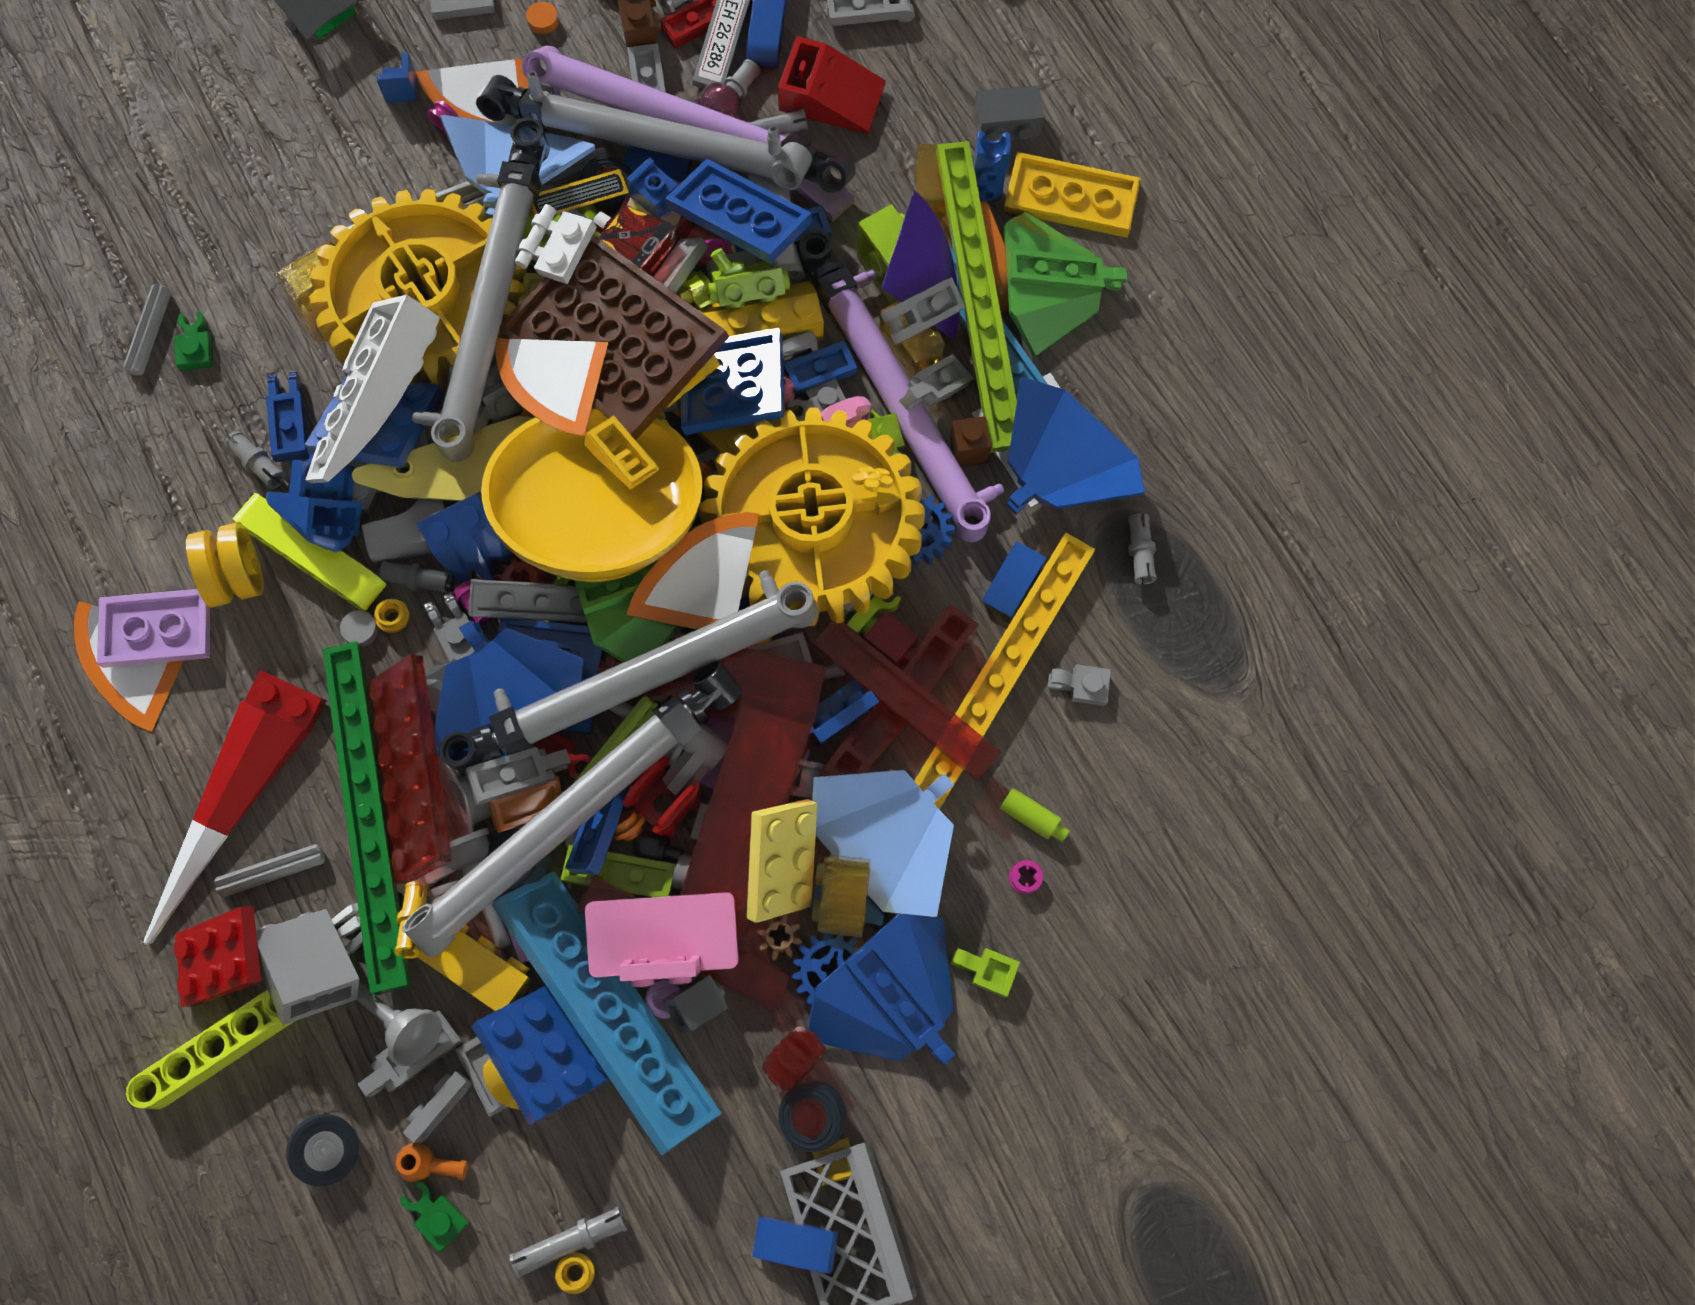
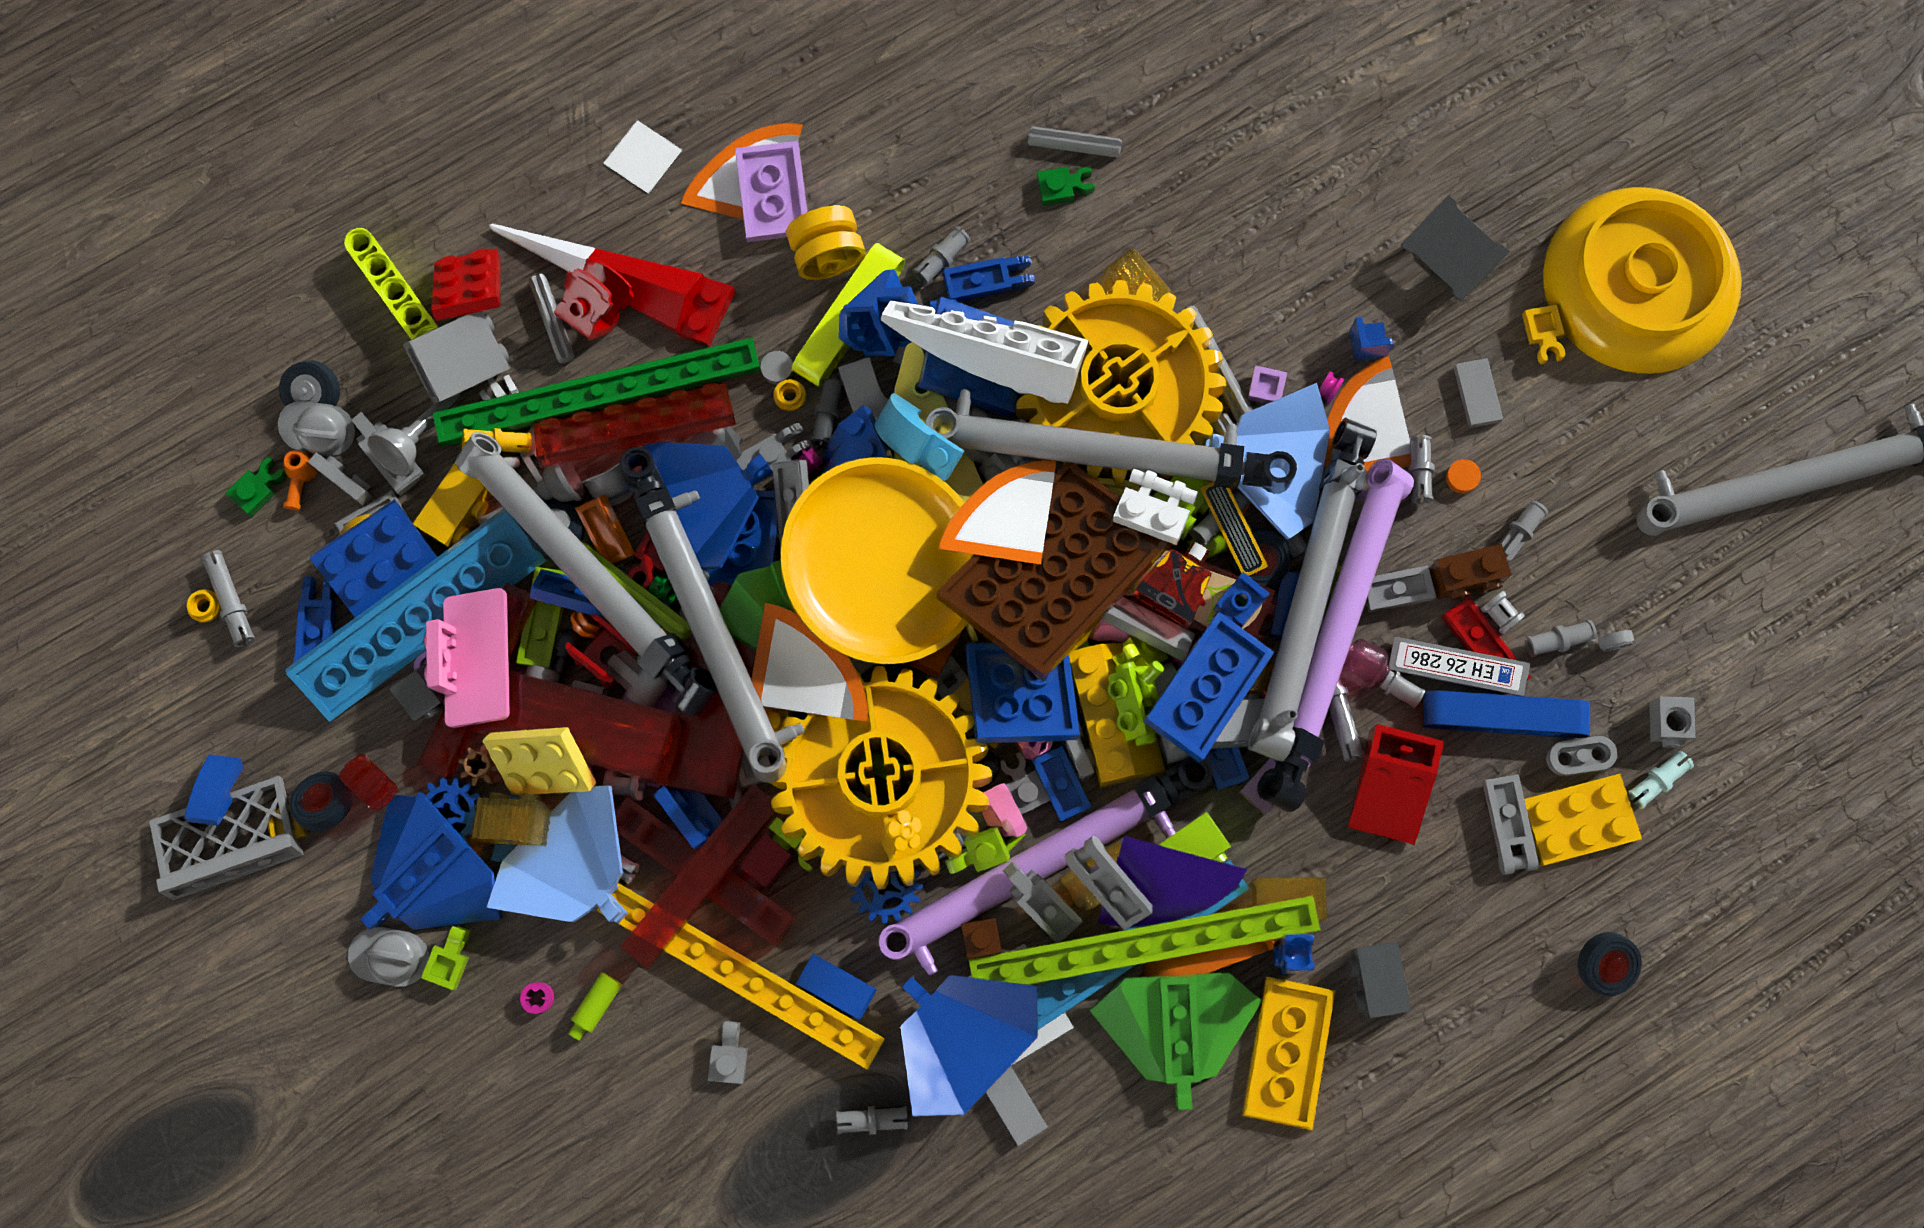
camera: 95 degrees right, 5 degrees up
(87, 773) = (642, 156): none -> white sticker
(255, 811) = (594, 299): none -> red piece
(369, 1143) = (316, 428): none -> light grey piece
(435, 169) = (1266, 385): none -> lavender plate
(459, 462) = (914, 440): none -> medium azure arch
(514, 773) = (622, 516): light grey hinge -> none
(521, 47) = (1421, 469): none -> light grey pin
(594, 743) = (662, 589): none -> green plate
(604, 1134) = (314, 616): none -> blue hinge
(614, 429) = (938, 564): yellow slope -> none
(982, 1040) = (388, 956): none -> light grey piece
(1131, 419) = (1015, 1107): none -> light grey tile

